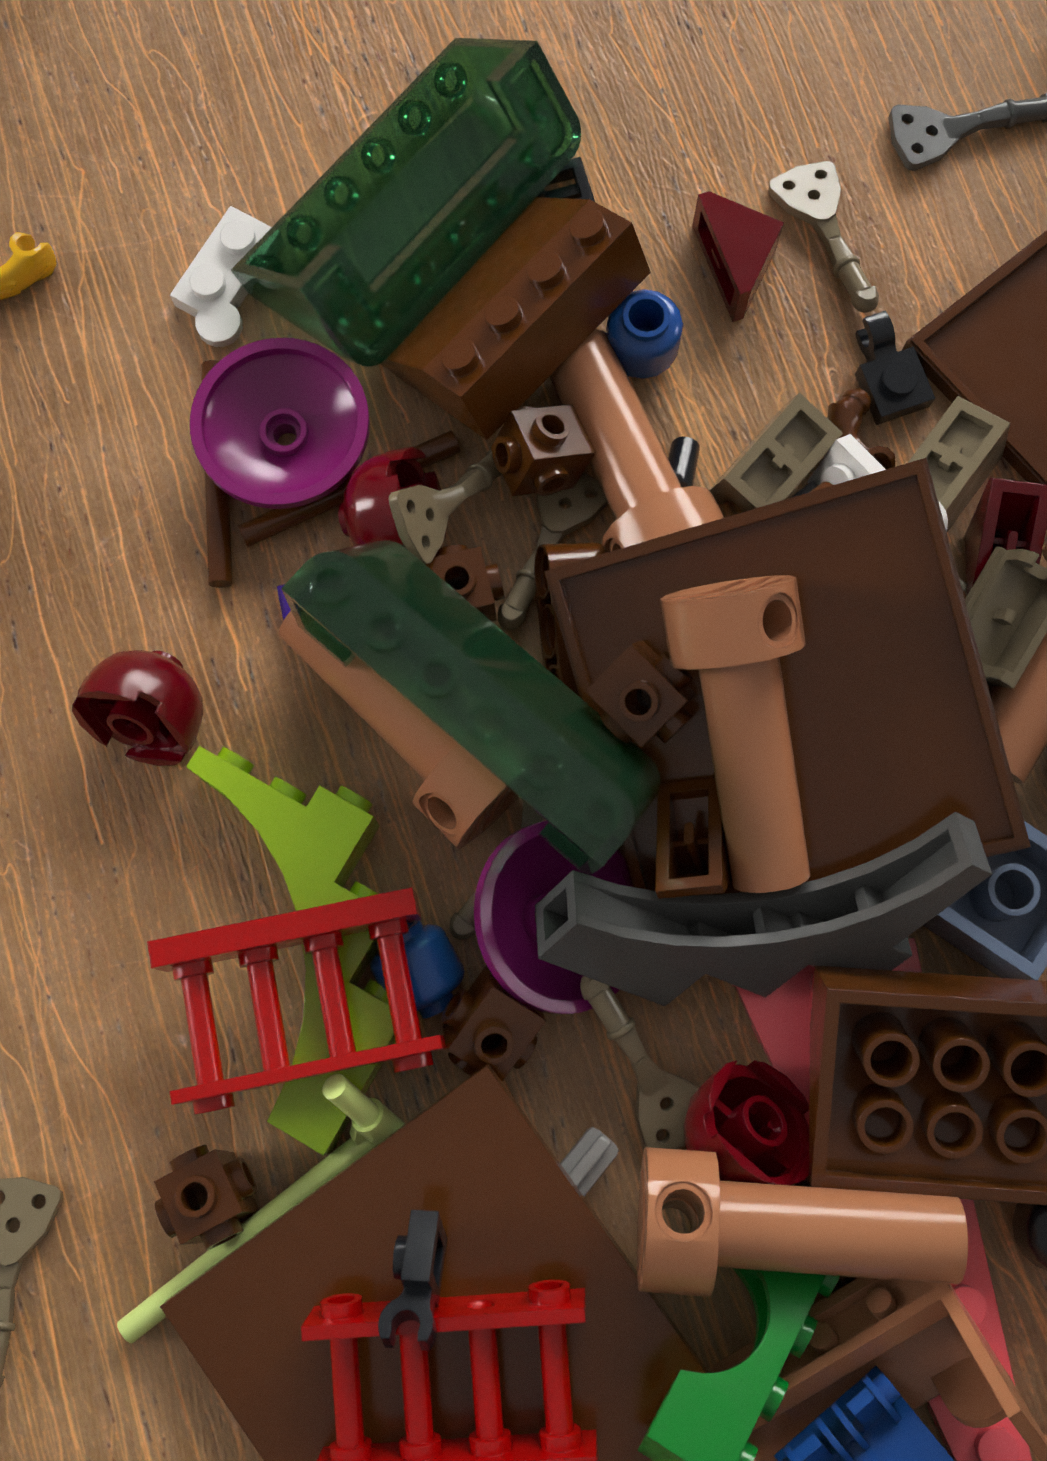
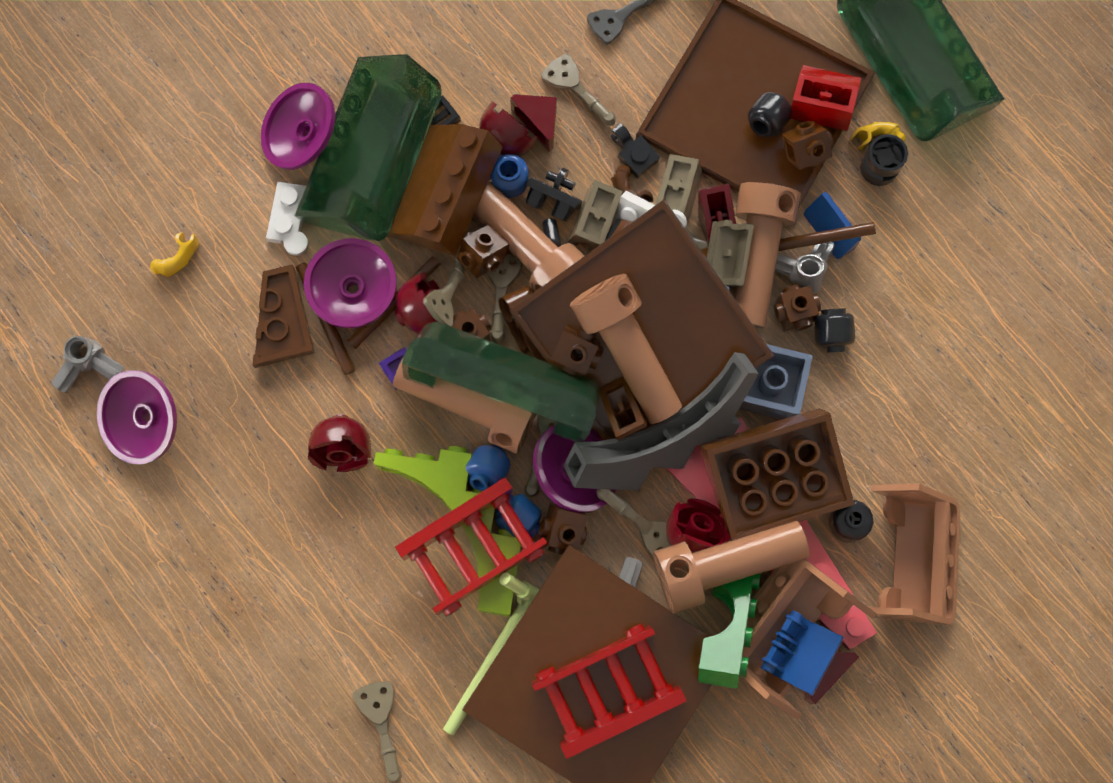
camera: 25 degrees left, 0 degrees up
(140, 449) = (282, 319): none -> reddish brown wing
(228, 1203) = (471, 663): reddish brown brick -> none
(301, 118) = (298, 126): none -> magenta dish
(395, 852) = (487, 466): none -> blue head
(419, 1266) = (573, 639): black plate -> none
(672, 253) = (507, 131): none -> dark red cylinder
(691, 382) = (540, 191): none -> black hips

